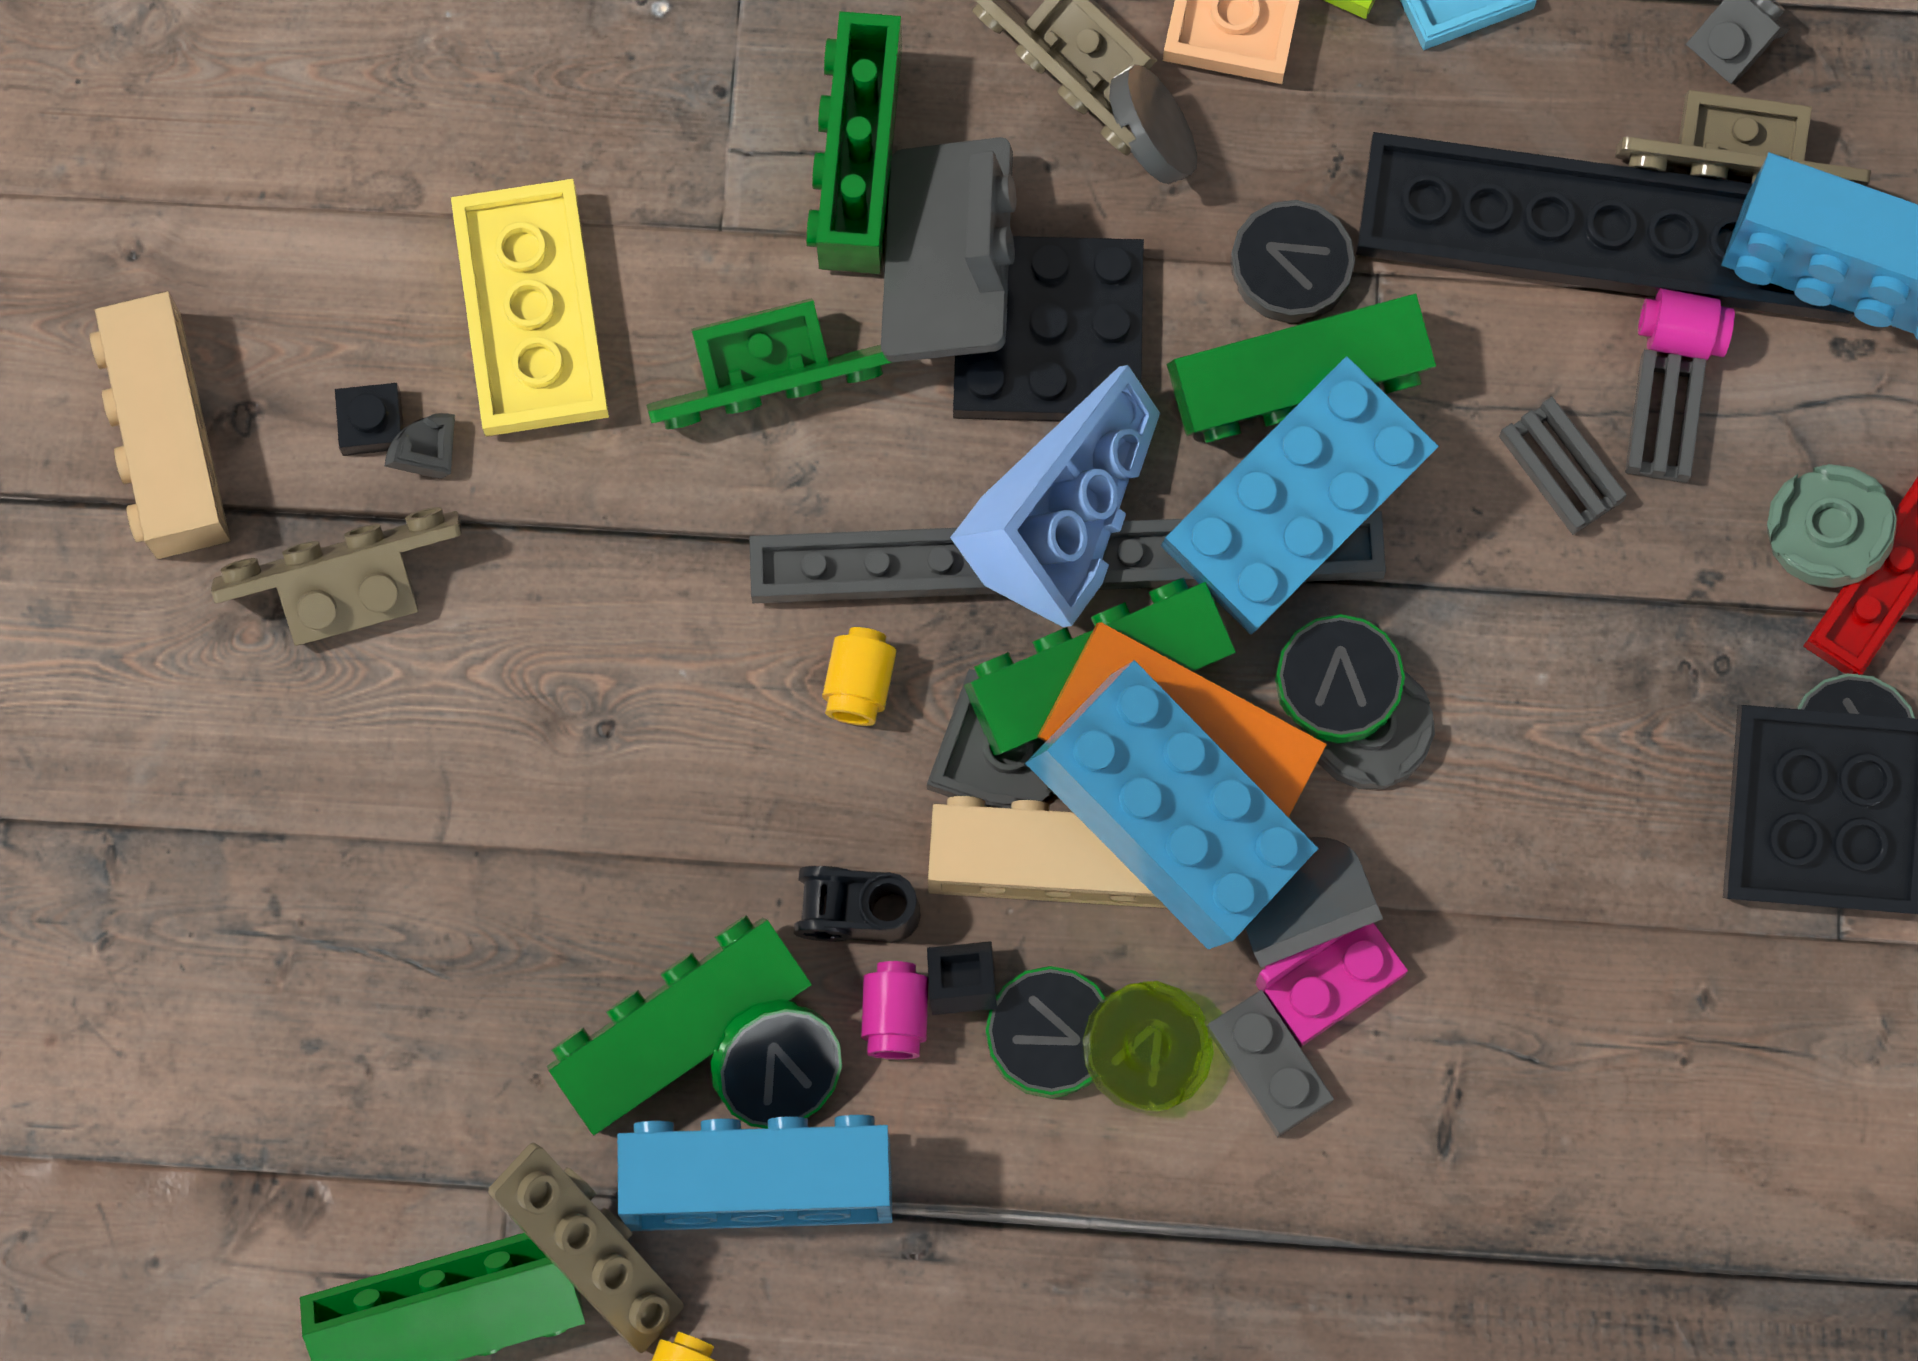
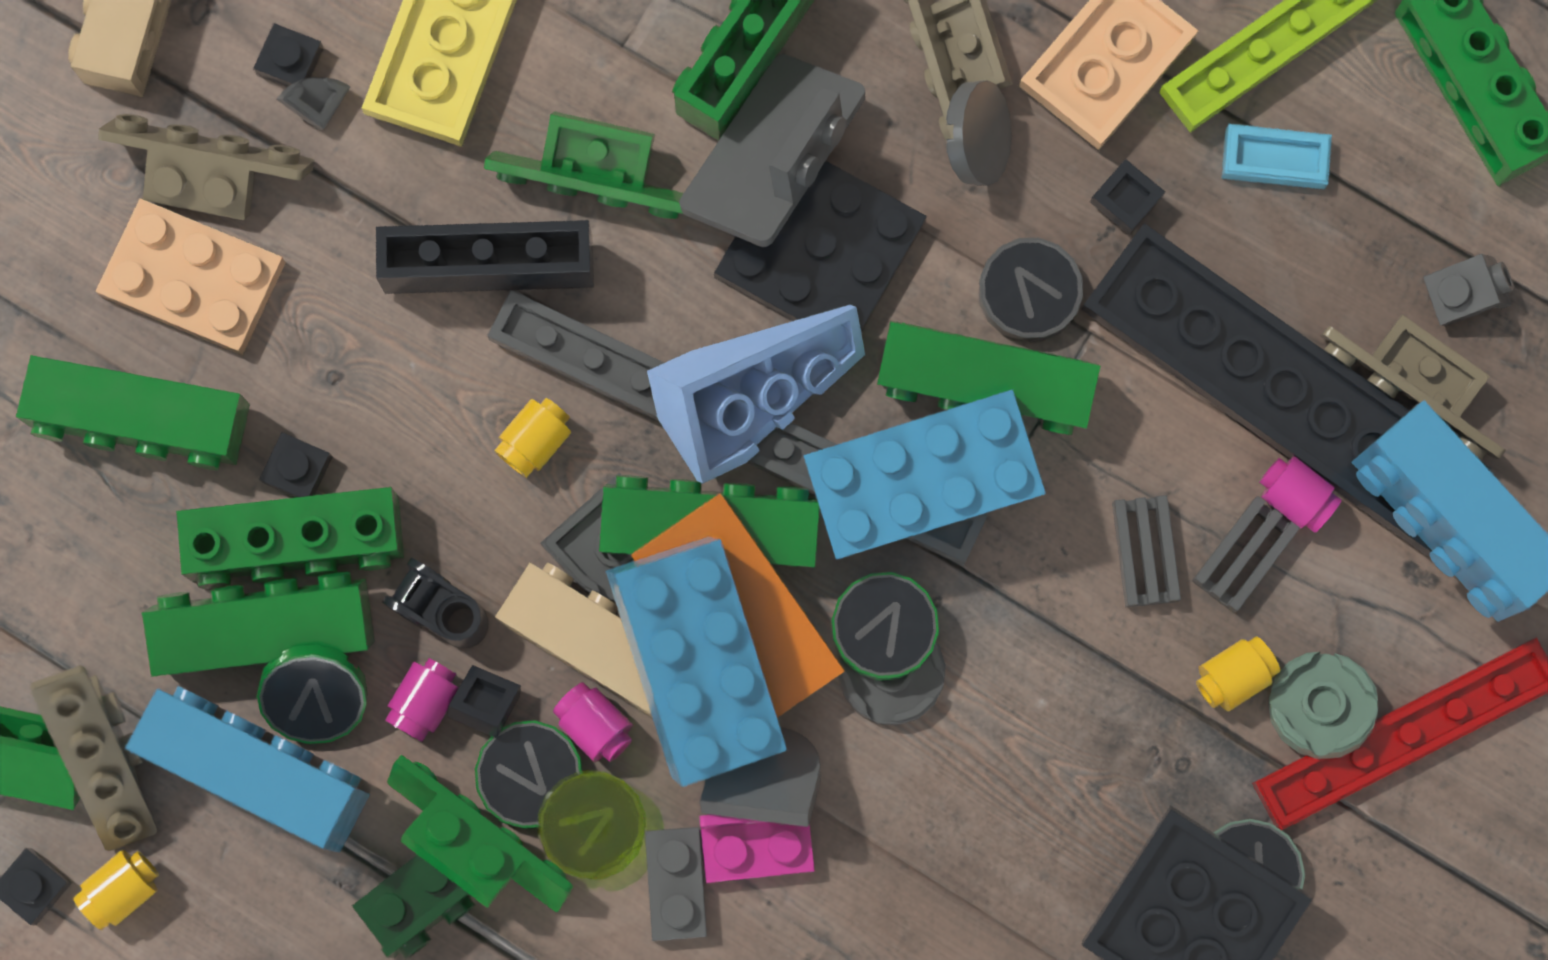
camera: 25 degrees right, 5 degrees up
(391, 701) = (190, 276): none -> light nougat plate
(413, 871) = (132, 411): none -> green brick
(619, 843) = (295, 467): none -> black plate
(658, 913) = (290, 536): none -> green brick
(705, 513) = (484, 257): none -> black brick
(1004, 1225) = (410, 905): none -> dark green bracket
(1031, 1131) = (467, 845): none -> green bracket
(1090, 940) = (593, 723): none -> dark pink brick
(1340, 115) = (1127, 196): none -> black plate
(1727, 539) = (1237, 673): none -> yellow brick

